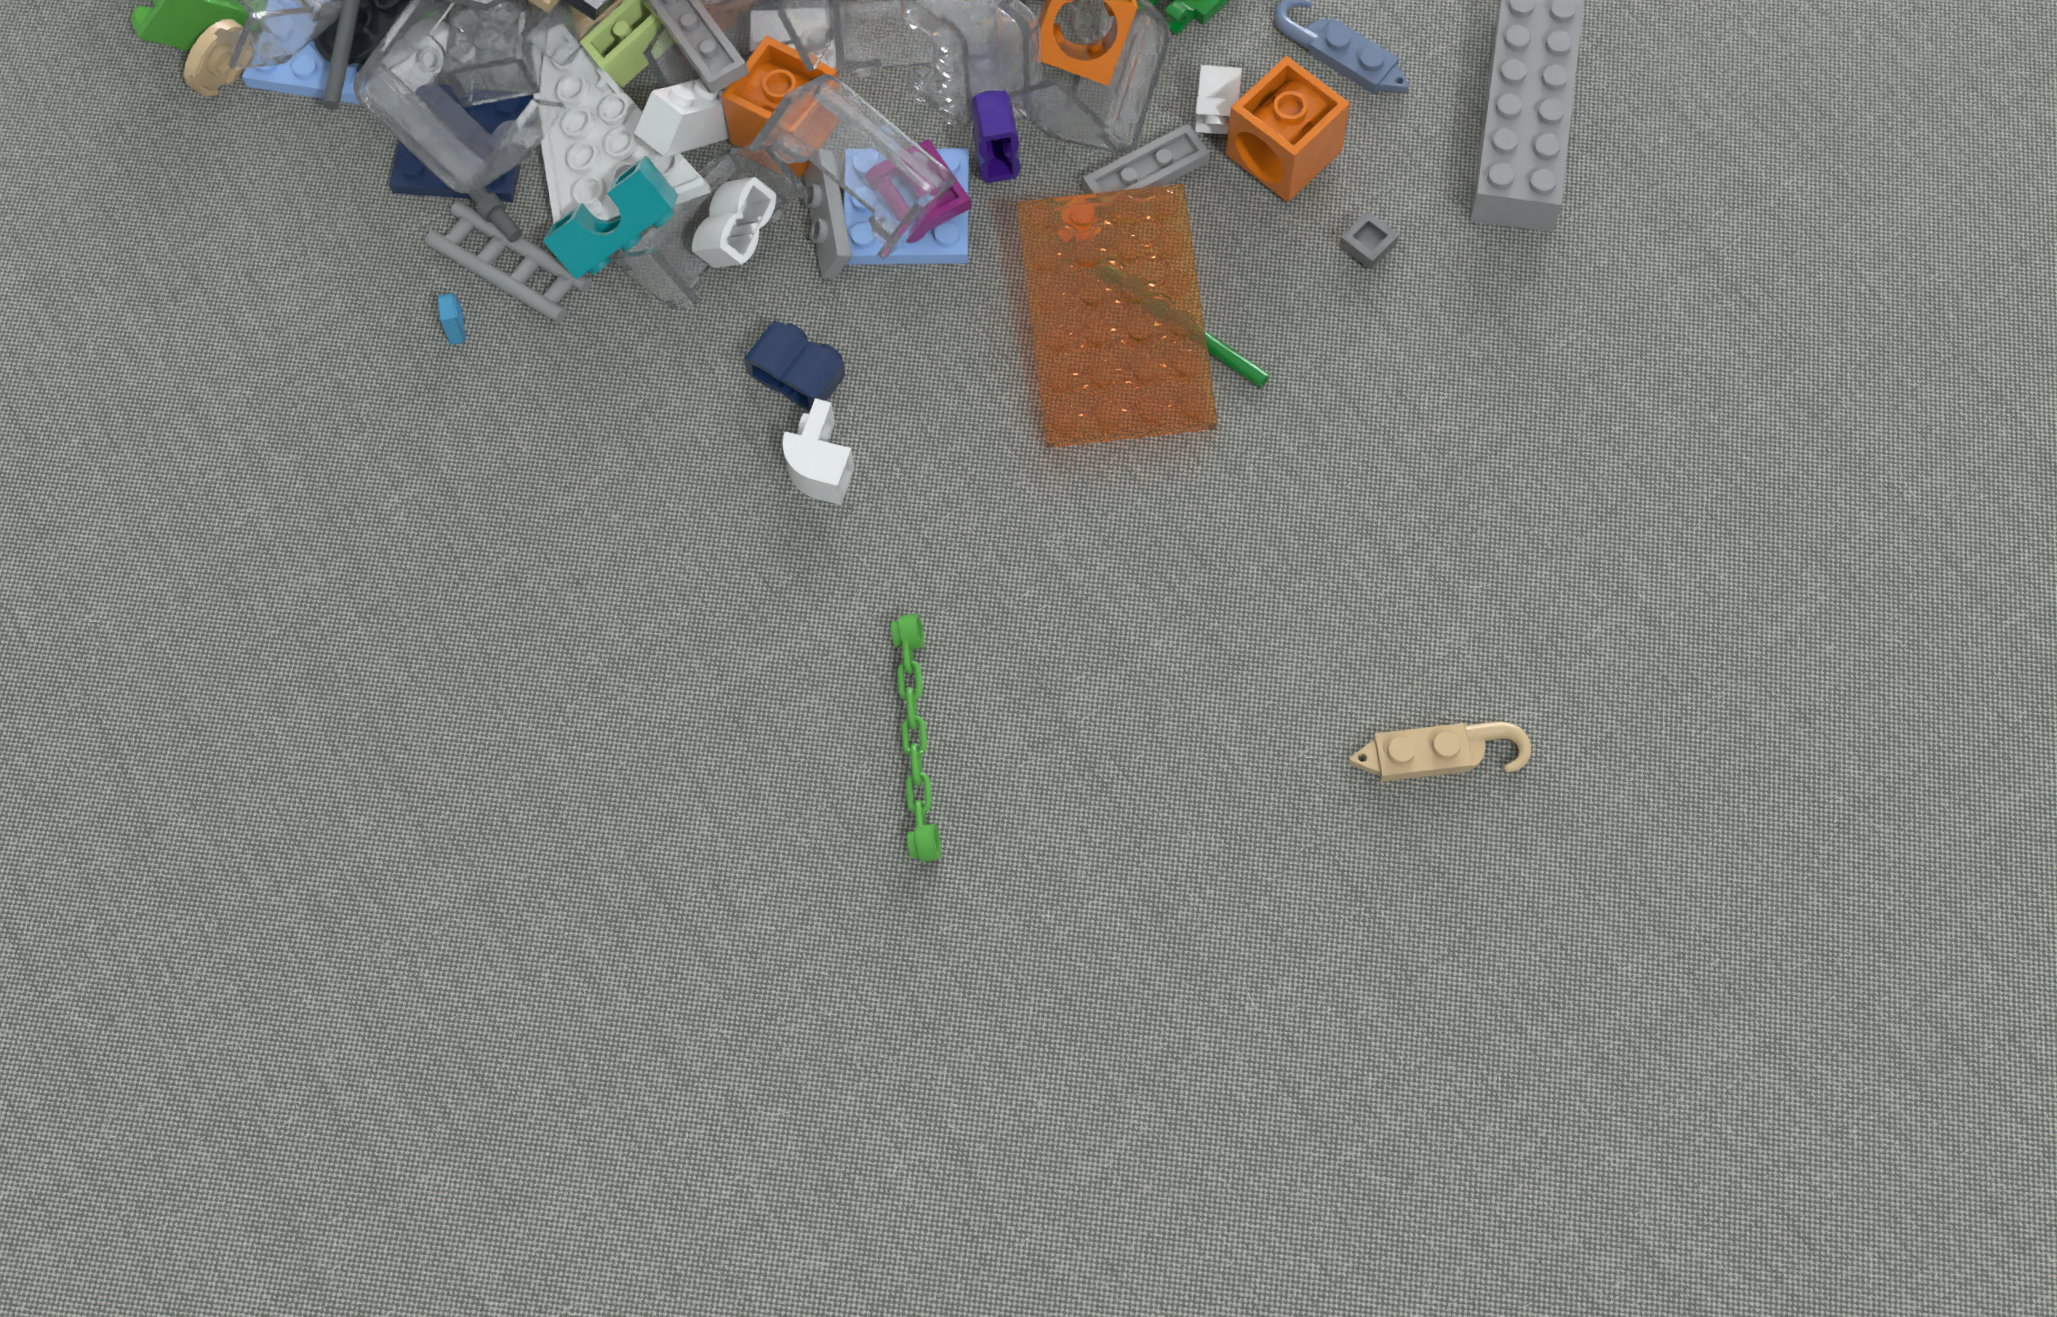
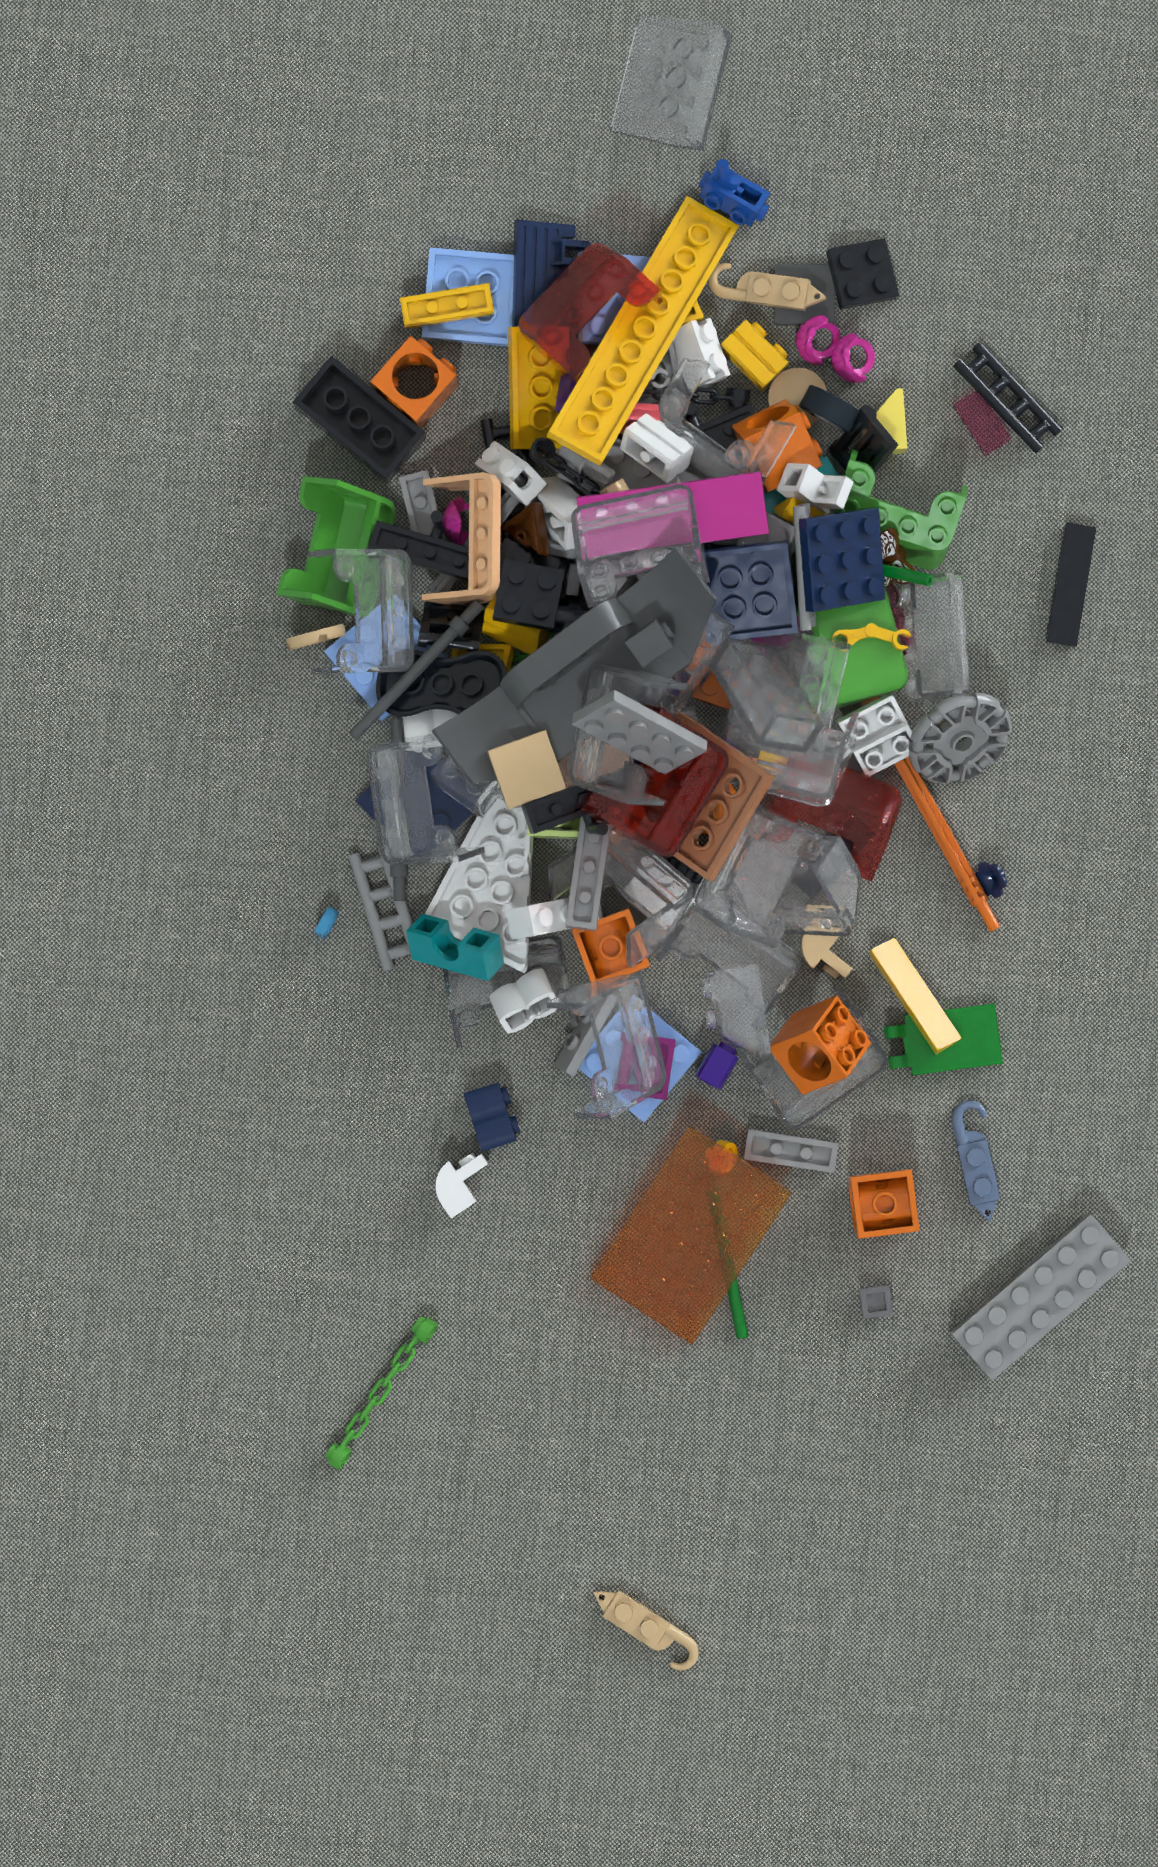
camera: 40 degrees right, 20 degrees up
(1217, 93) = (869, 1142): white brick -> none

